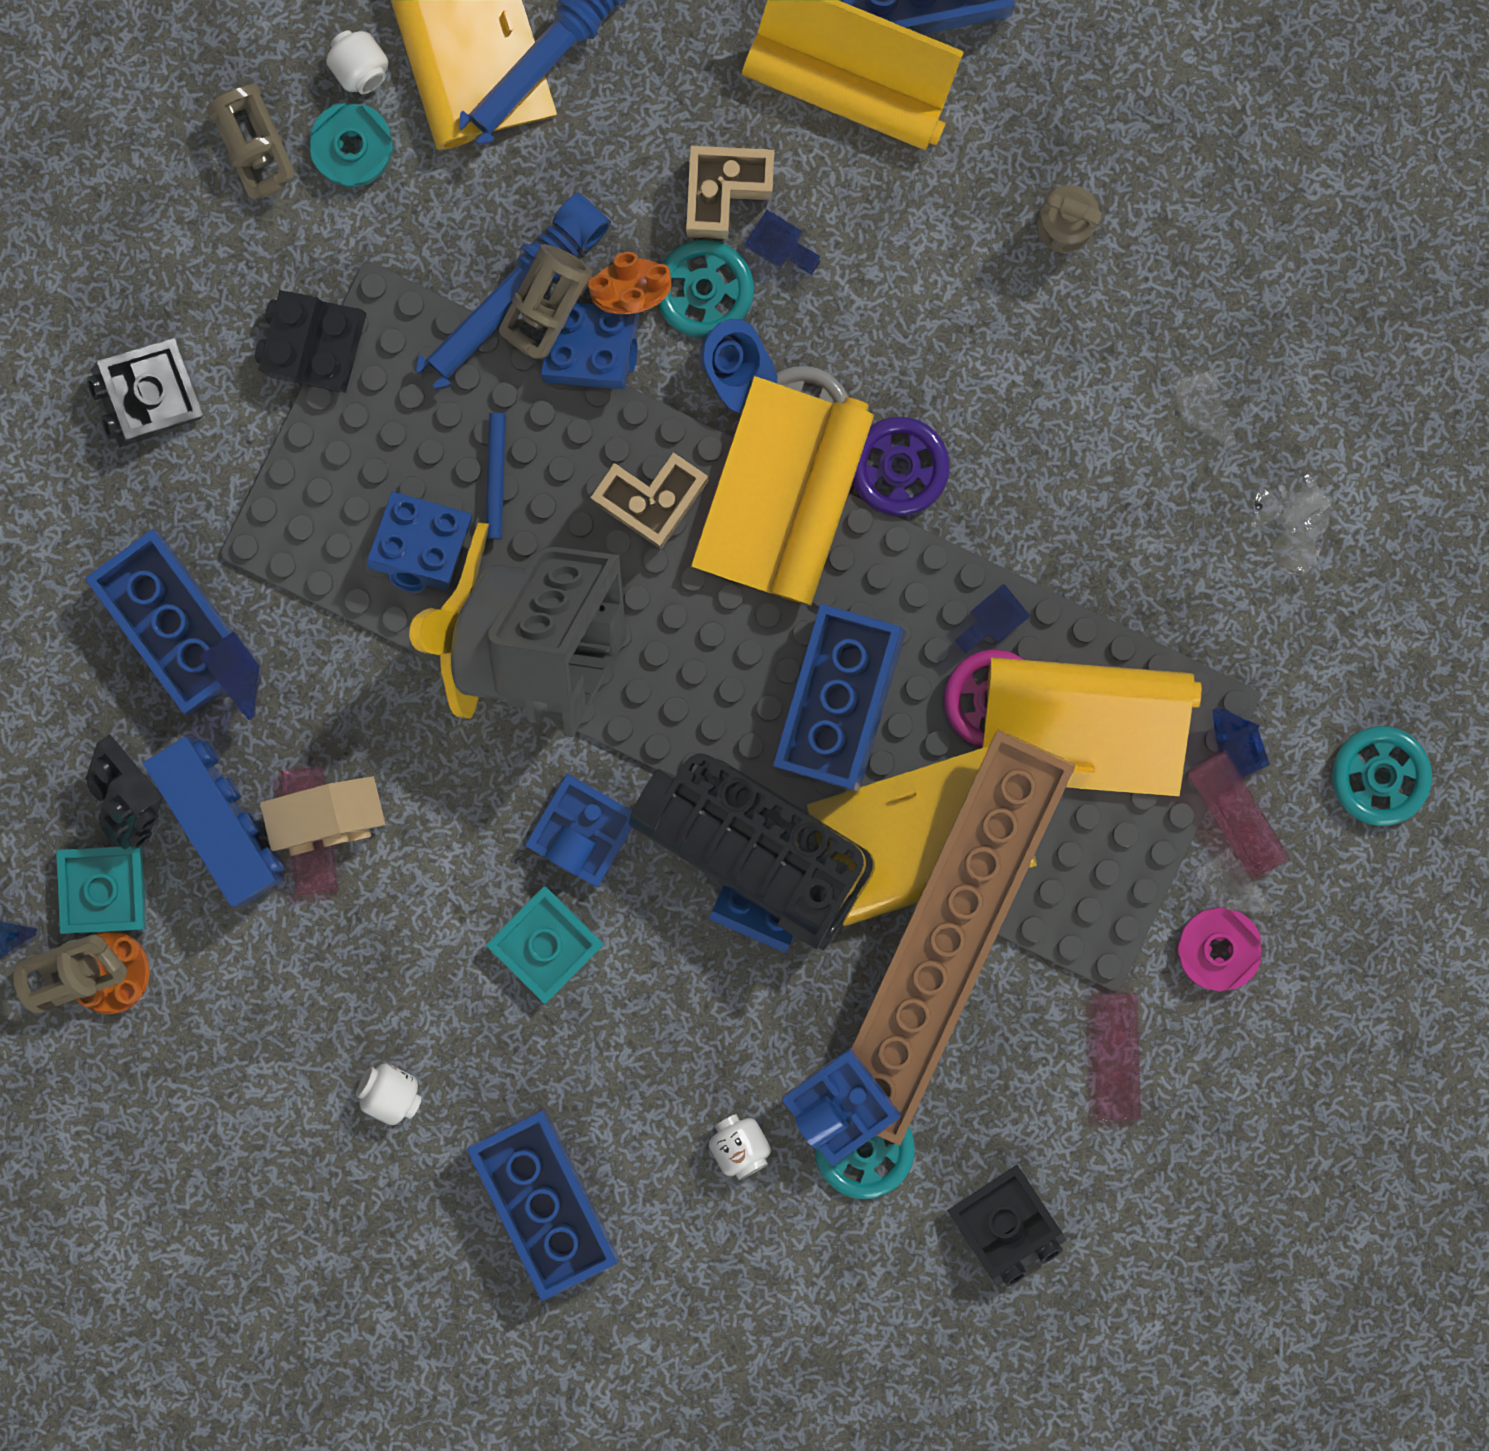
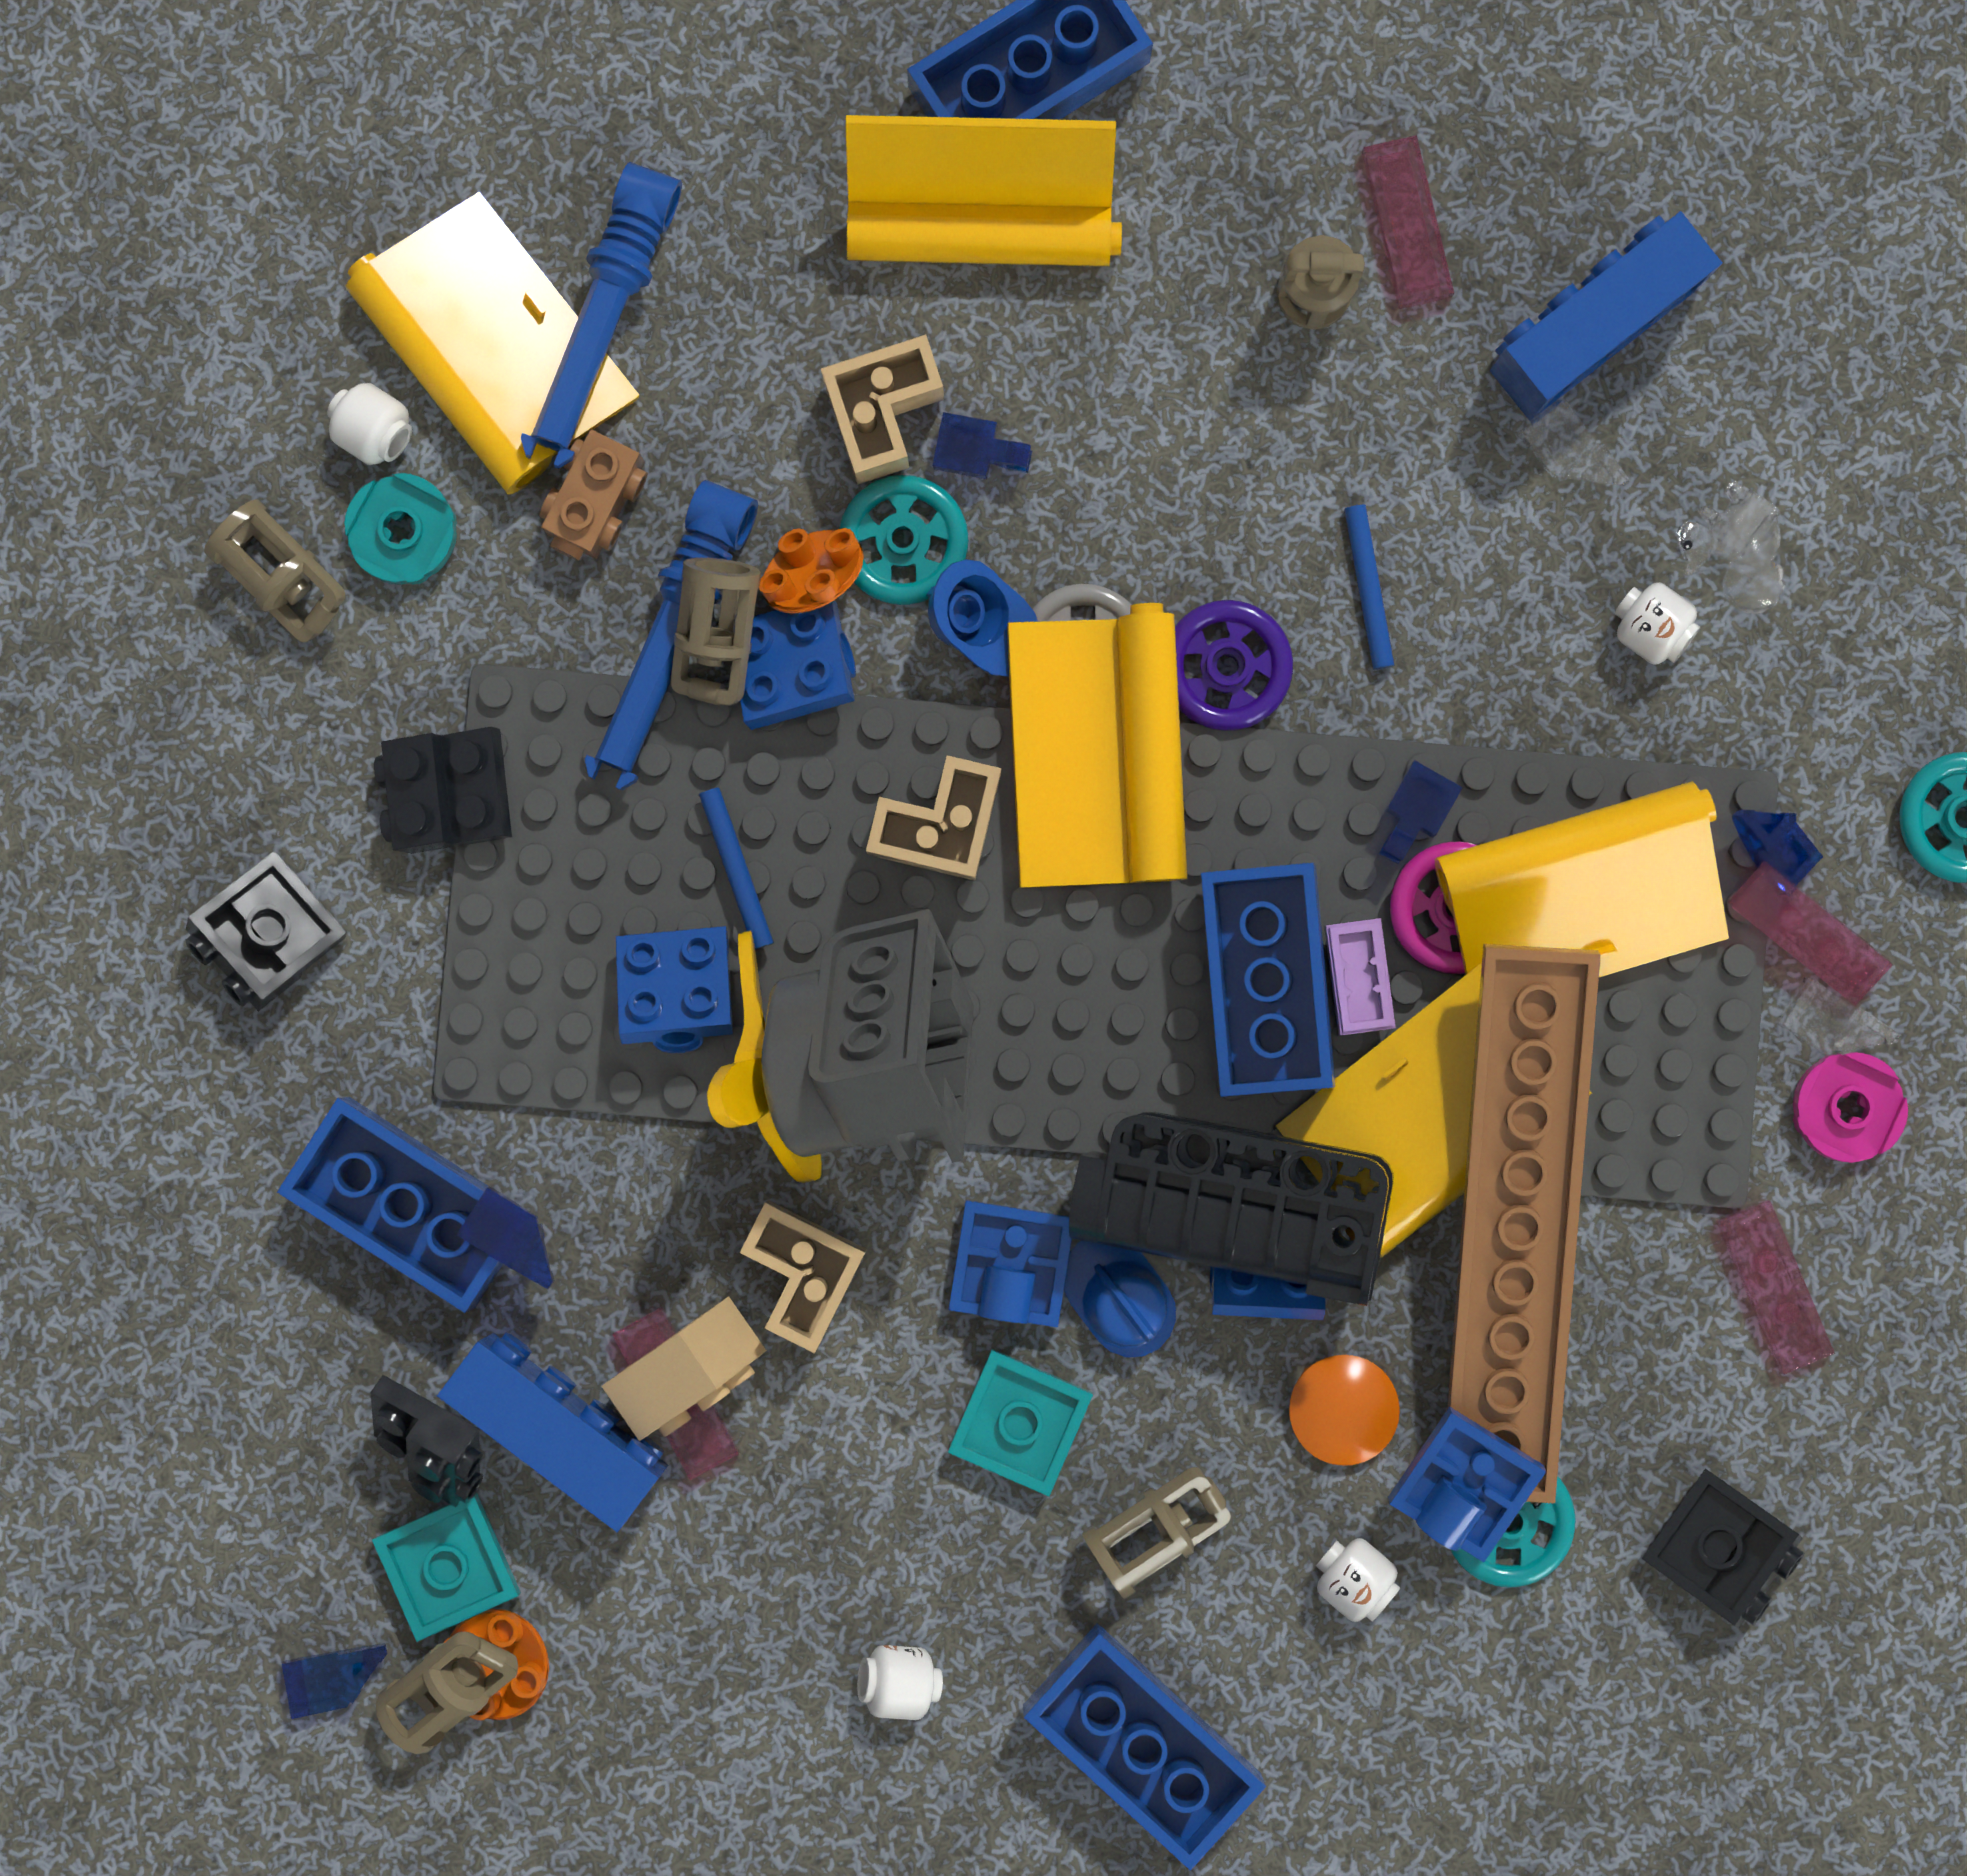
camera: 20 degrees left, 0 degrees up
(443, 782) = (817, 1267): none -> tan brick
(489, 179) = (587, 506): none -> medium nougat brick
(623, 1055) = (1170, 1522): none -> dark tan piece
(649, 884) = (1119, 1298): none -> blue piece
(777, 1025) = (1344, 1409): none -> orange dish
(906, 722) = (1359, 976): none -> lavender plate
(1022, 449) = (1369, 587): none -> blue bar
(1150, 200) = (1407, 222): none -> clear pink tile
(1215, 553) = (1656, 623): none -> white head
(1262, 320) = (1603, 317): none -> blue brick

